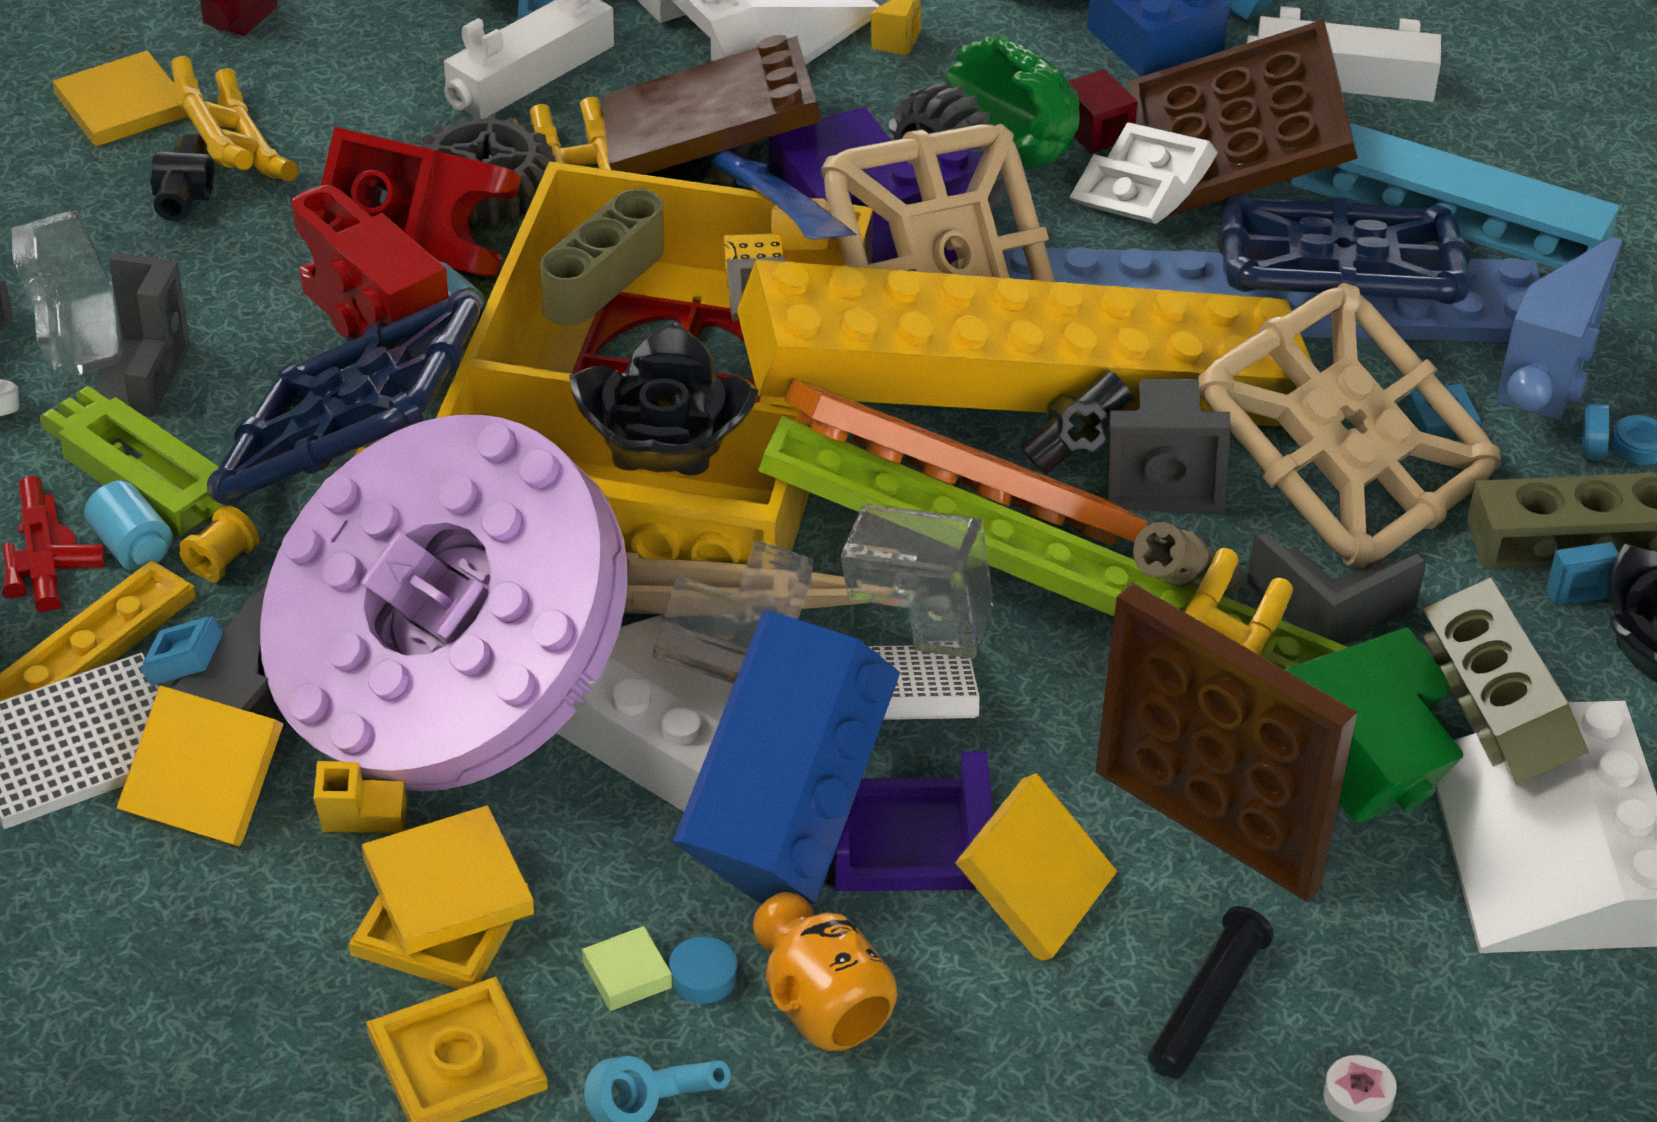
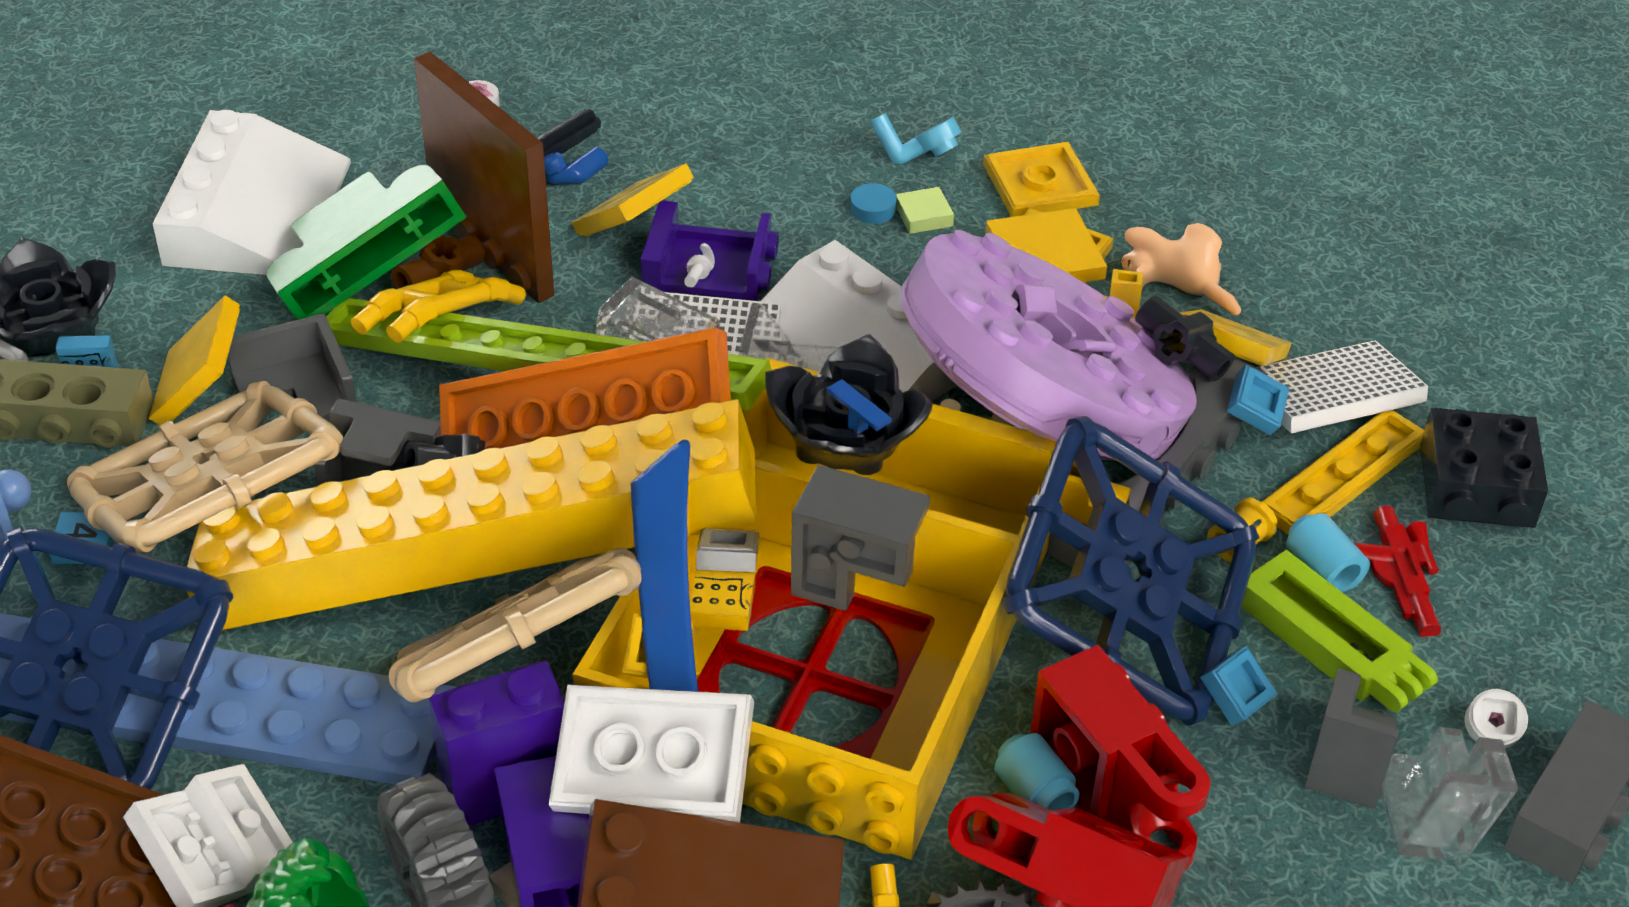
camera: 170 degrees left, 0 degrees up
(244, 391) = (1238, 685): none -> dark azure tile
(254, 885) = (1183, 263): none -> light nougat animal
(269, 679) = (1184, 338): none -> black axle
(602, 257) = (863, 611): olive beam -> none
(646, 223) = (849, 528): none -> dark grey panel
(648, 344) = (861, 410): none -> blue piece
(769, 150) = (653, 750): none -> white tile
(787, 758) = (783, 231): blue slope -> none
(823, 973) = (795, 167): light orange piece -> none
(914, 789) = (699, 266): none -> white hand
(1154, 963) = (576, 172): none -> blue arm
(1177, 557) = (432, 331): dark tan pin -> none
(1441, 546) = (195, 361): none -> yellow tile
(1502, 683) = (247, 182): olive brick -> none

